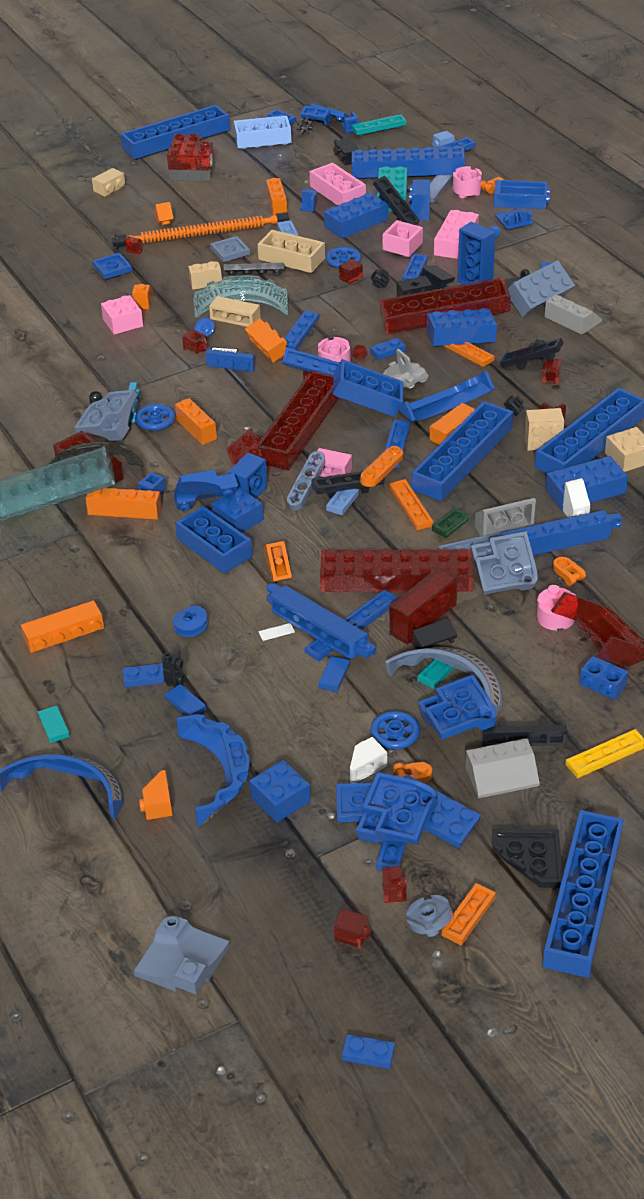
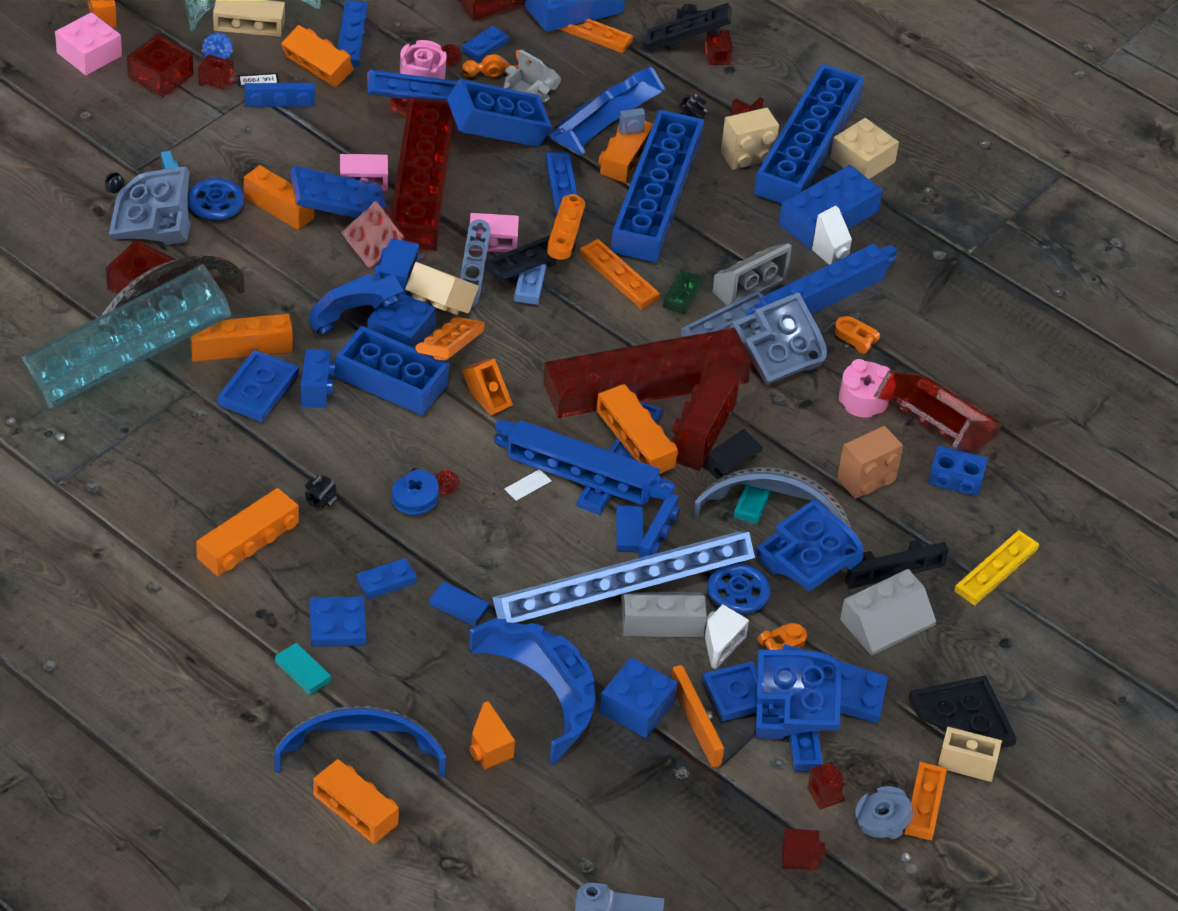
camera: 25 degrees left, 5 degrees up
(40, 821) = (356, 801): none -> orange brick
(94, 697) = (337, 621): none -> blue plate
(120, 535) = (258, 385): none -> blue plate
(125, 609) = (320, 491): none -> black gear
(152, 482) = (266, 302): blue brick -> none
(159, 332) = (160, 65): none -> clear red brick
(160, 536) = (316, 378): none -> blue brick
(173, 669) = (429, 564): black hinge -> none
(216, 614) = (450, 477): none -> clear red plate
(230, 422) = (334, 192): none -> blue plate
(260, 413) = (365, 168): none -> bright pink brick
(263, 525) = (451, 338): none -> orange hinge
(272, 492) = (441, 289): none -> tan brick
(310, 704) = (623, 577): none -> light blue brick
(318, 813) = (698, 717): none -> orange tile
(327, 736) = (663, 614): none -> light grey slope
(353, 677) = (660, 526): none -> blue plate
(368, 606) = (636, 428): none -> orange brick
(382, 361) = (491, 66): none -> orange piece
(459, 404) = (631, 121): none -> sand blue plate
(517, 885) = (969, 754): none -> tan brick
(533, 658) = (869, 462): none -> nougat brick
(583, 894) = (1047, 746): blue brick -> none

